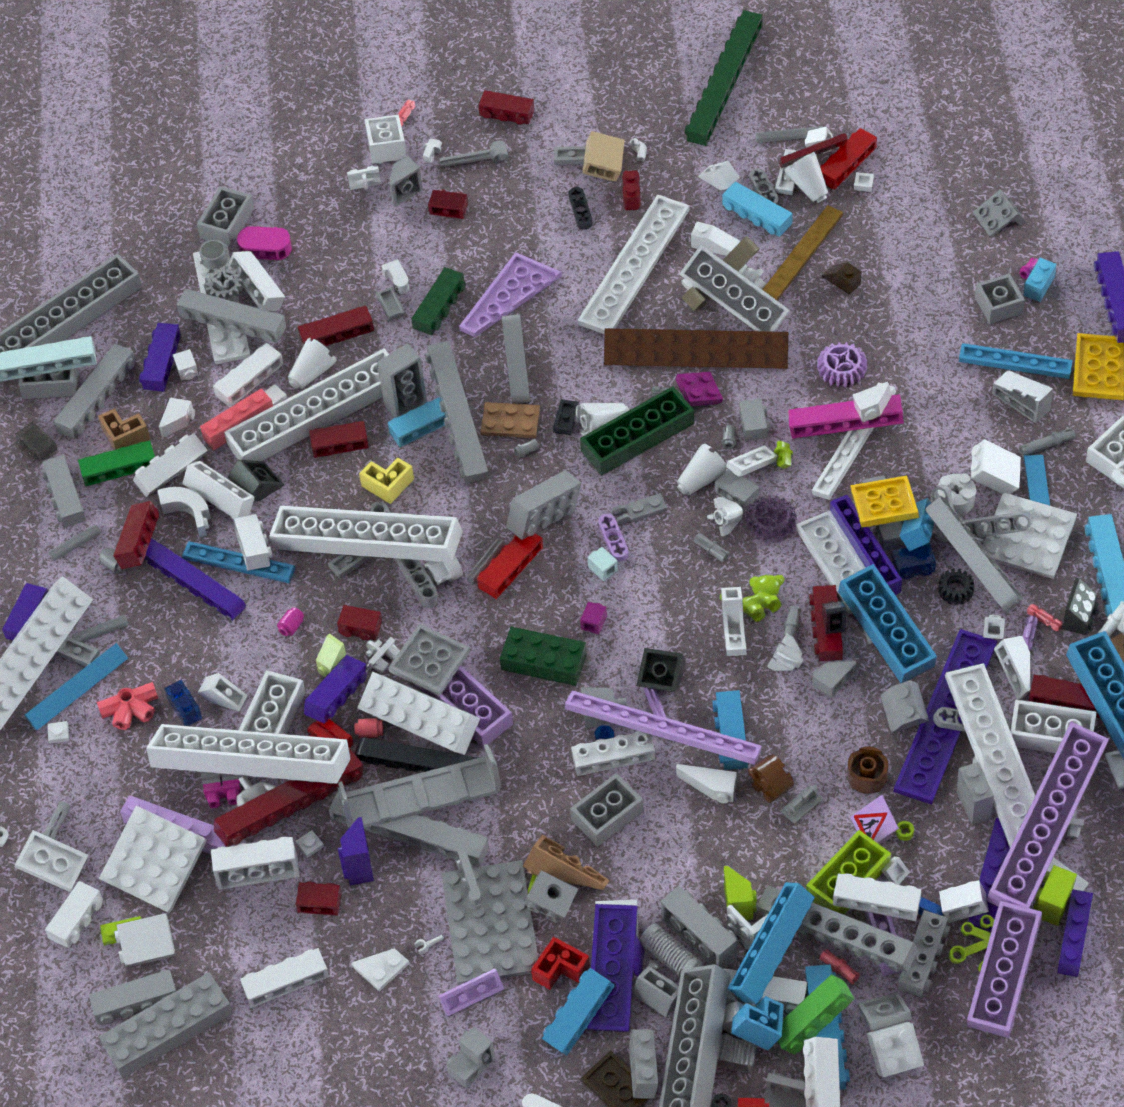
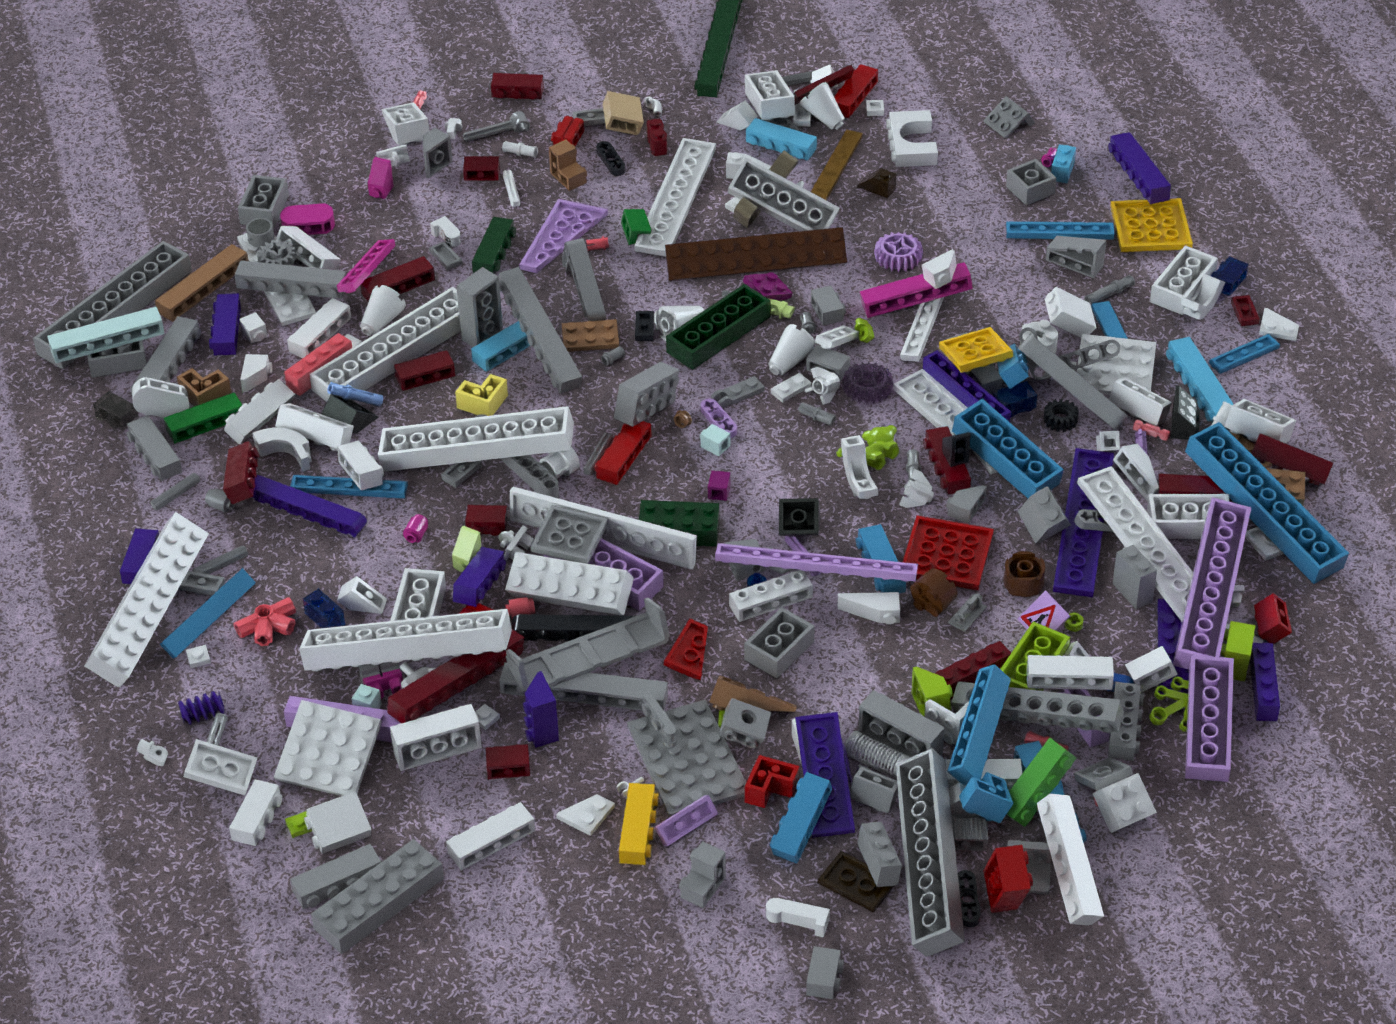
camera: 15 degrees left, 10 degrees down
(48, 792) = (201, 707): none -> dark purple piece
(77, 437) = (159, 397): none -> white brick
(147, 304) = (200, 283): none -> medium nougat brick
(201, 809) = (367, 697): none -> light aqua brick
(257, 458) = (348, 392): none -> light blue pin
(307, 309) = (365, 266): none -> dark pink plate
(344, 205) = (380, 178): none -> dark pink slope
(424, 988) = (637, 822): none -> yellow brick
(473, 230) = (511, 188): none -> white axle
(480, 659) = (624, 532): none -> white plate
(492, 185) = (520, 149): none -> white pin
(519, 802) = (688, 650): none -> red wing
(531, 214) = (565, 167): none -> medium nougat brick
(543, 173) = (569, 129): none -> red brick
(544, 311) = (600, 243): none -> coral pin
(578, 531) = (682, 417): none -> medium nougat plate
(585, 294) = (634, 223): none -> green panel
(693, 511) = (790, 387): none -> white plate
(706, 416) = (781, 309): none -> yellowish green piece
(756, 155) = (769, 95): none -> white brick
(793, 869) = (968, 668): none -> dark red brick
(800, 729) = (951, 547): none -> red plate
(881, 243) = (906, 152): none -> white arch
(1039, 584) = (1139, 401): none -> white brick
(1103, 862) = (1272, 619): none -> red brick

